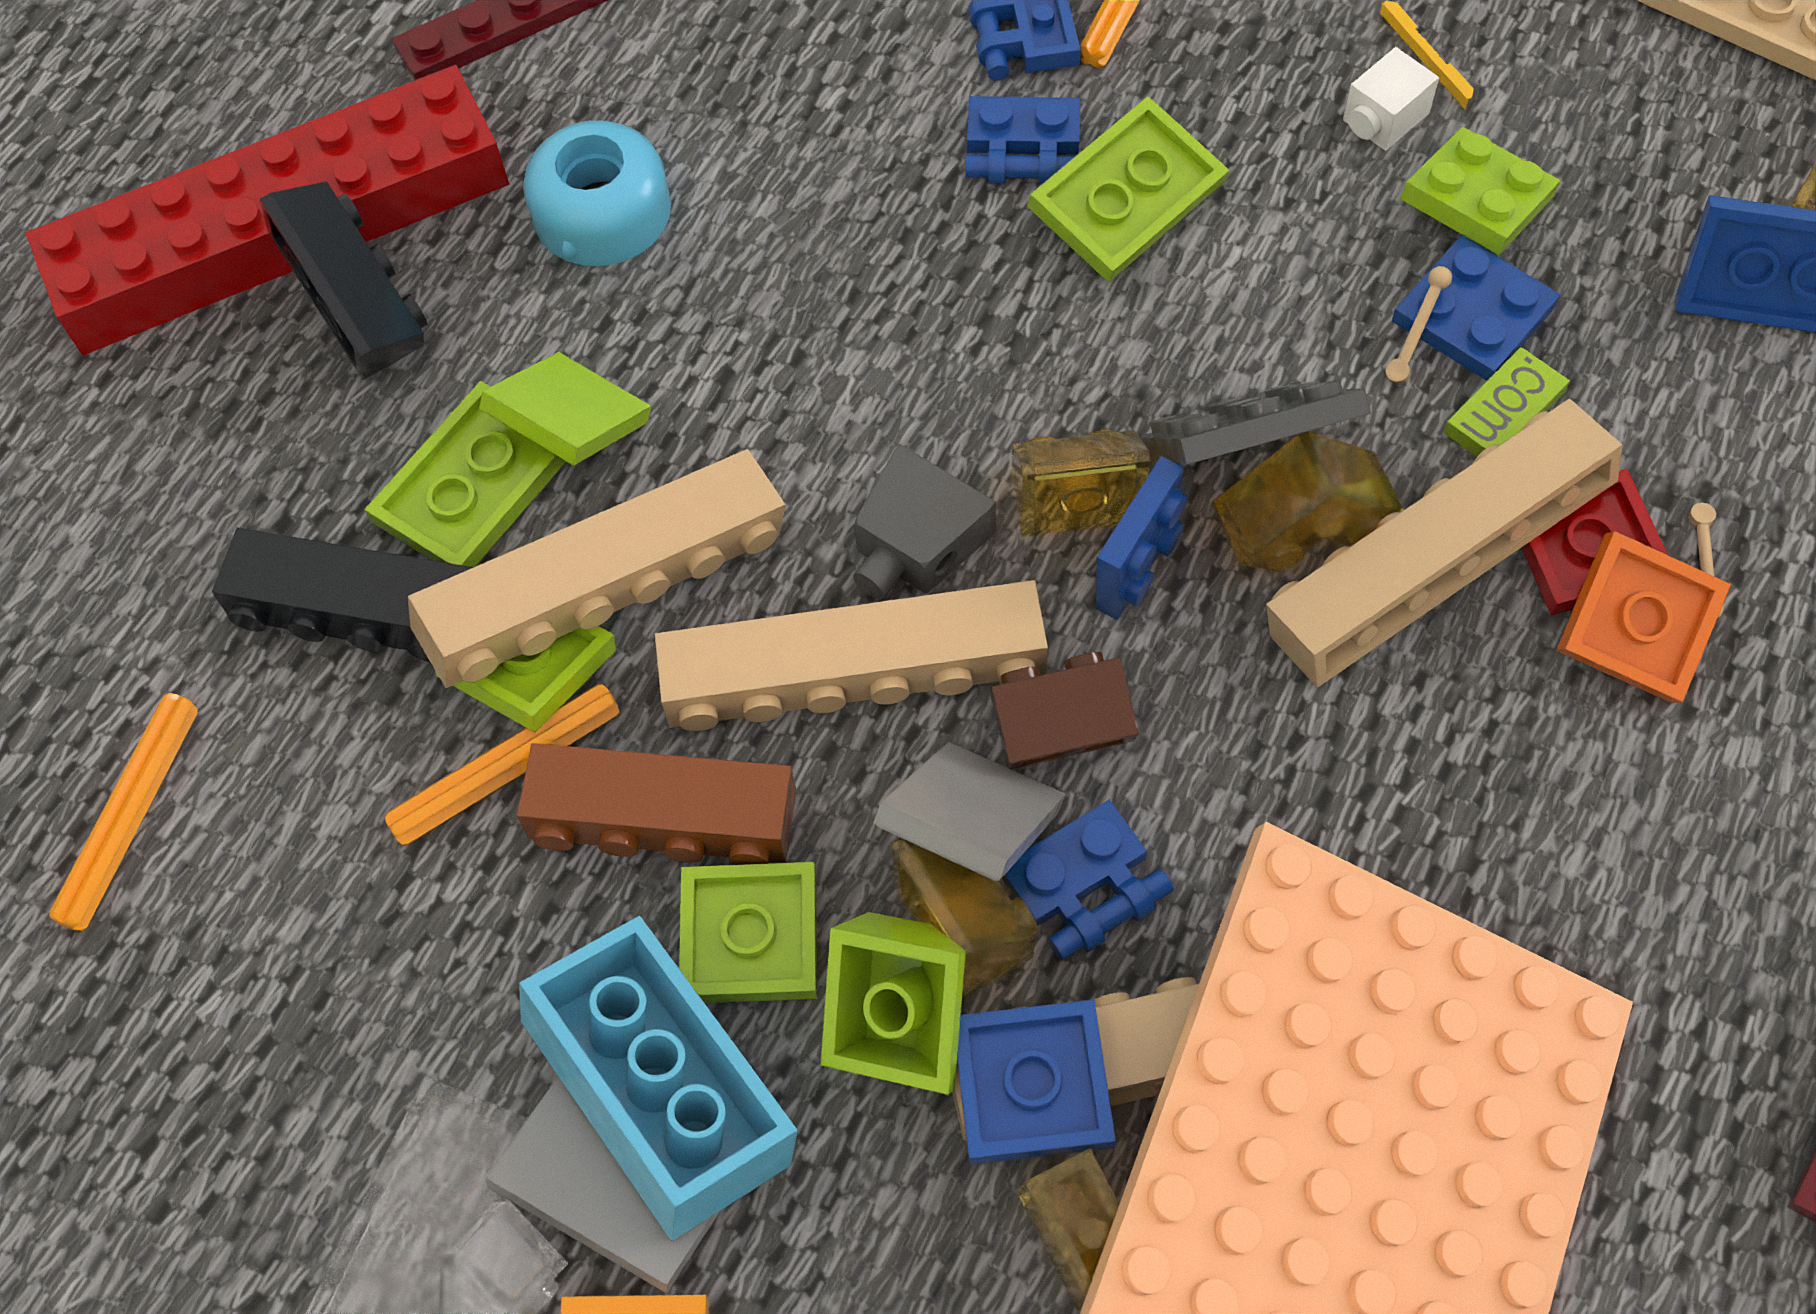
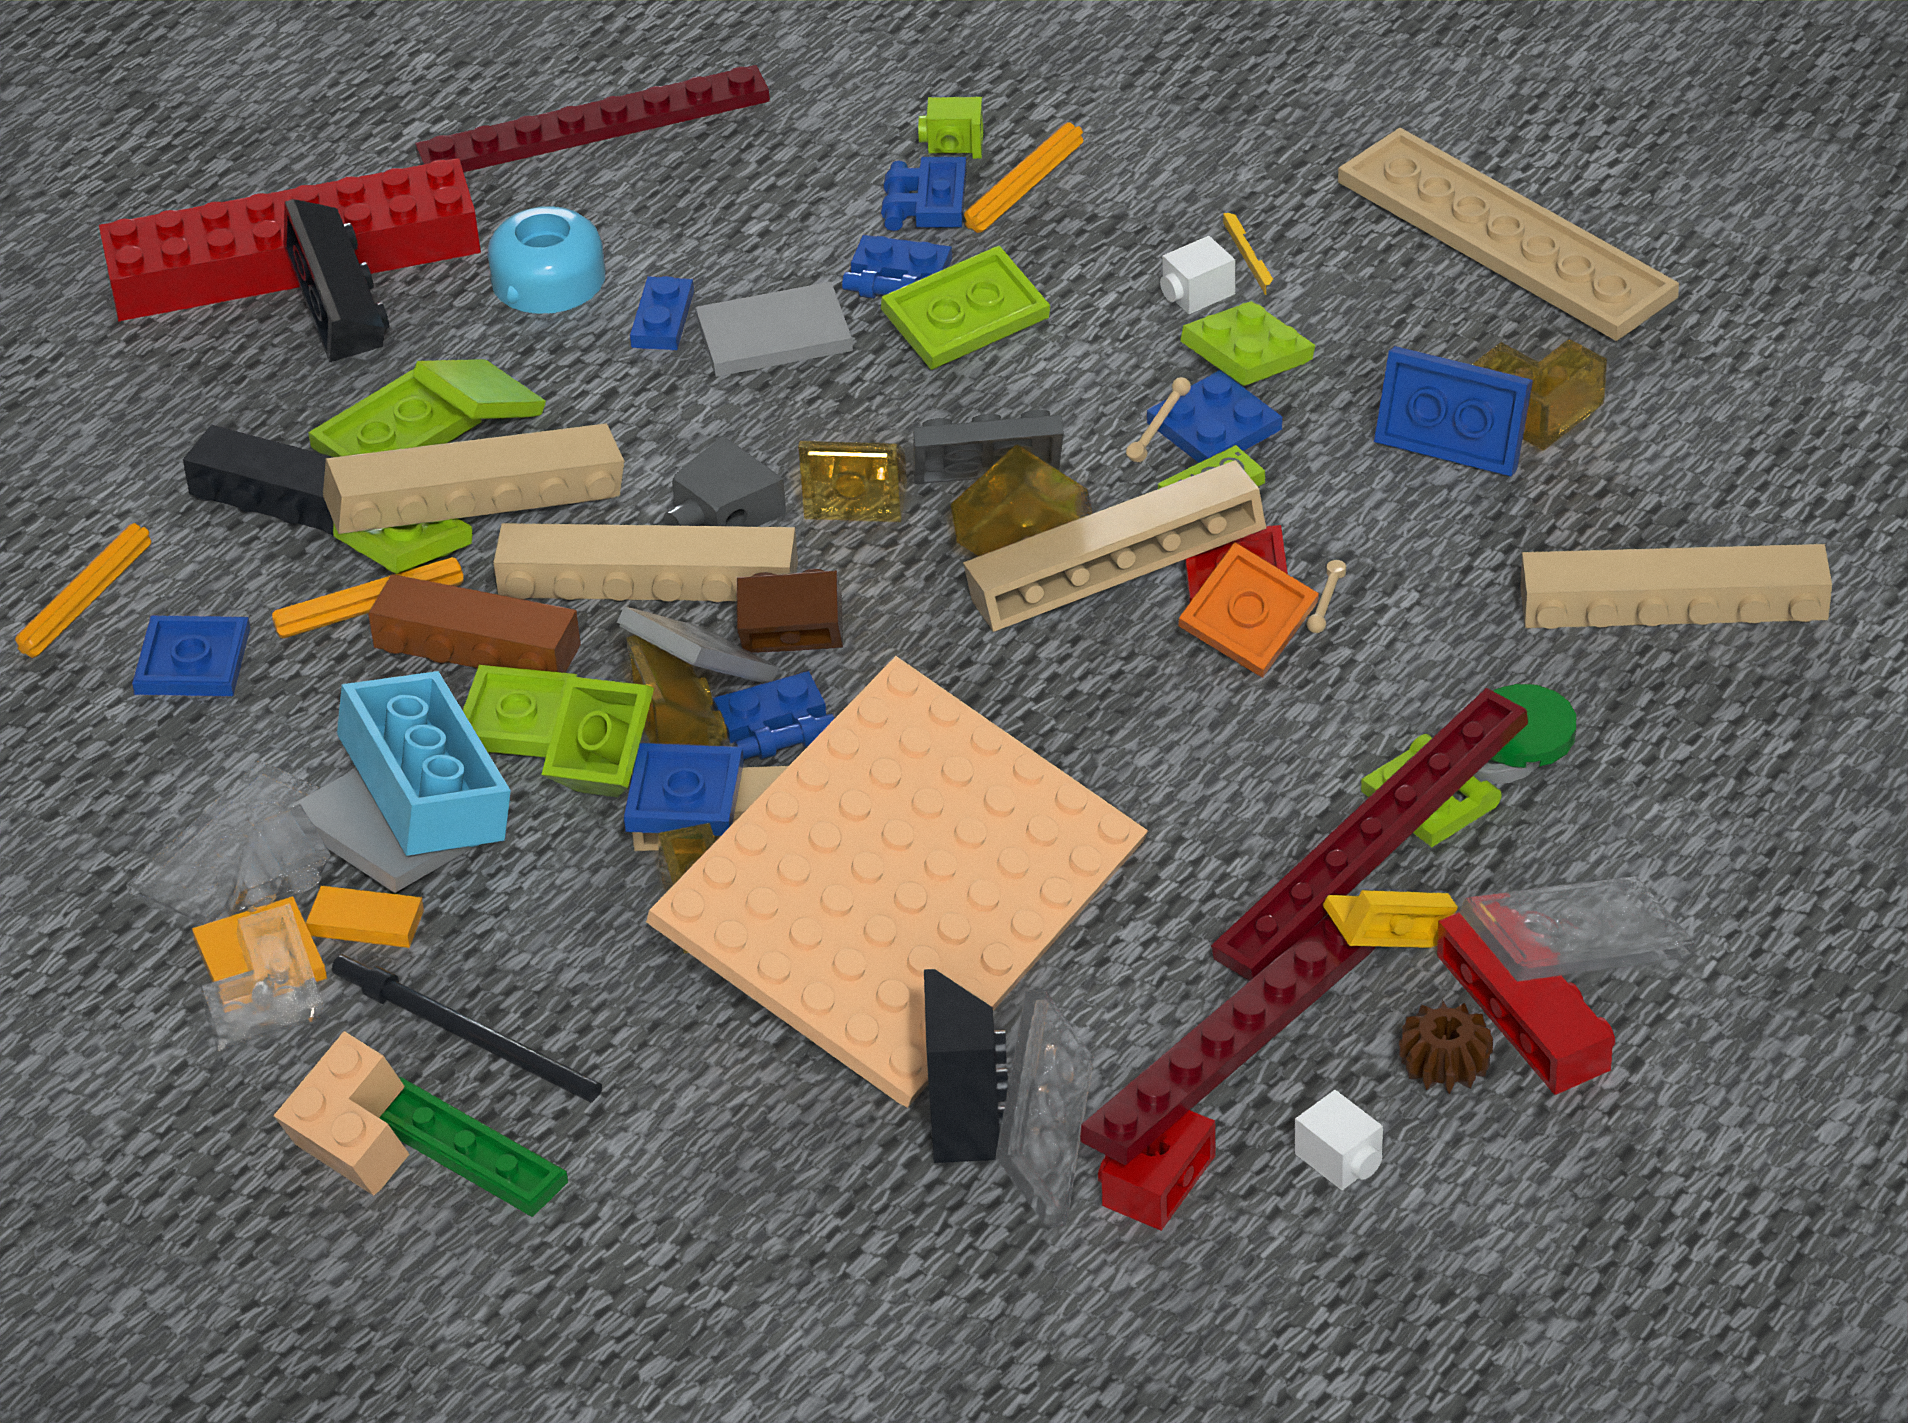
camera: 10 degrees right, 20 degrees down
(291, 899) = (191, 655): none -> blue tile
(757, 246) = (662, 313): none -> blue plate
(900, 250) = (773, 329): none -> light grey tile
(1143, 533) = (881, 511): blue plate -> none

